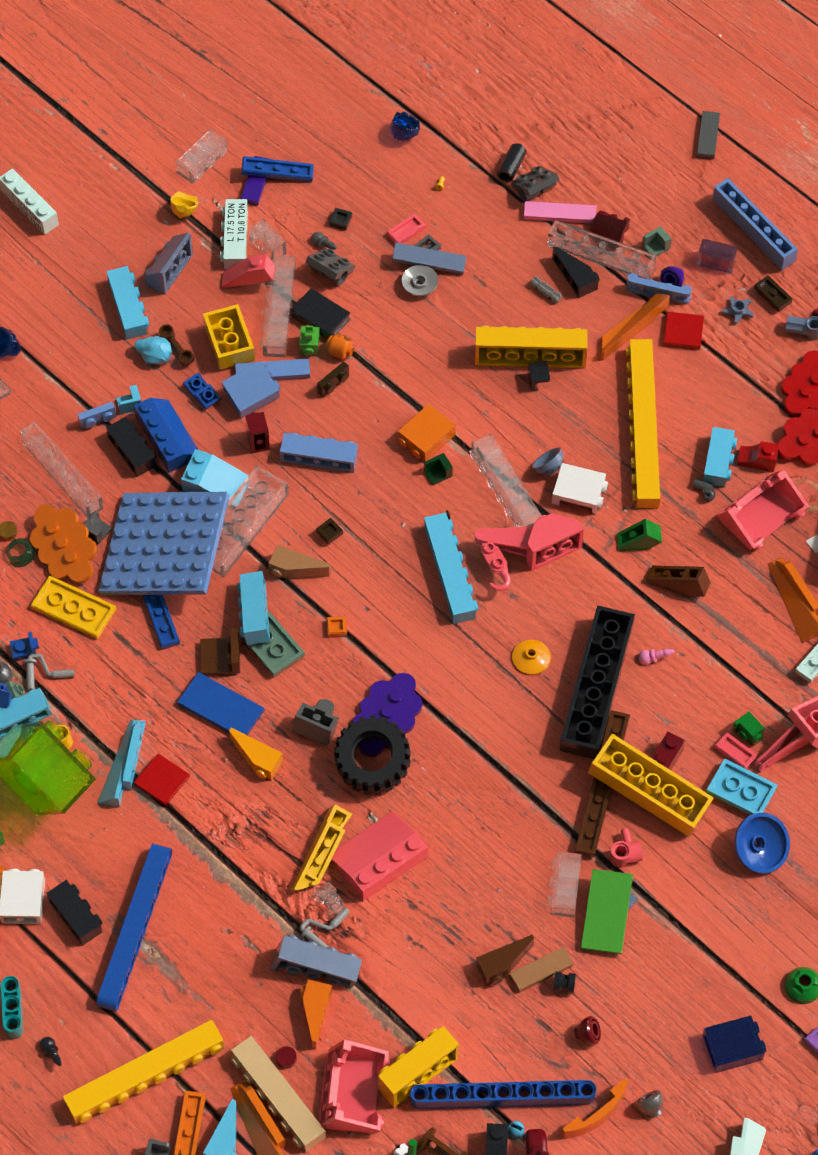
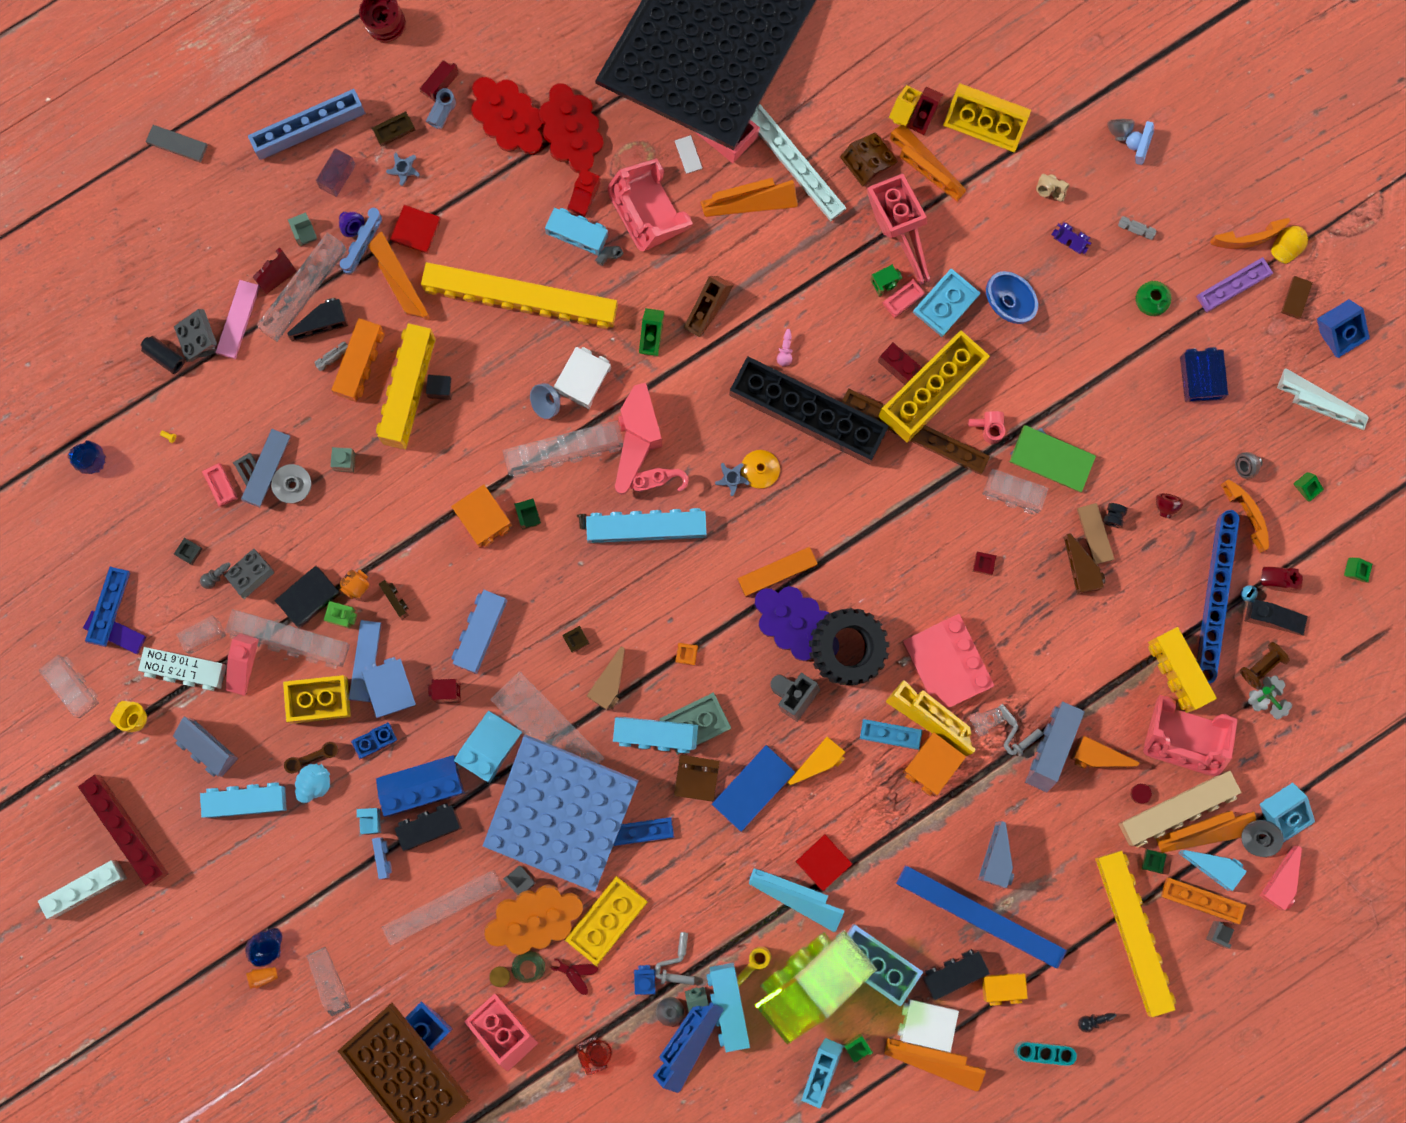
camera: 80 degrees left, 20 degrees up
(20, 589) = (573, 974): none -> dark red piece
(69, 958) = (1004, 987): none -> light orange brick
(71, 839) = (894, 974): none -> brick
(84, 220) = (123, 830): none -> dark red brick
(193, 926) = (997, 862): none -> sand blue slope
(220, 1081) = (1154, 861): none -> dark green tile
(275, 857) = (933, 765): none -> orange brick
(298, 817) = (891, 734): none -> dark azure tile
(434, 689) = (777, 571): none -> orange tile
(451, 314) = (343, 459): none -> sand green brick
(486, 871) = (984, 563): none -> dark red tile
(515, 633) = (732, 478): none -> sand blue animal
(547, 308) = (357, 360): none -> orange brick

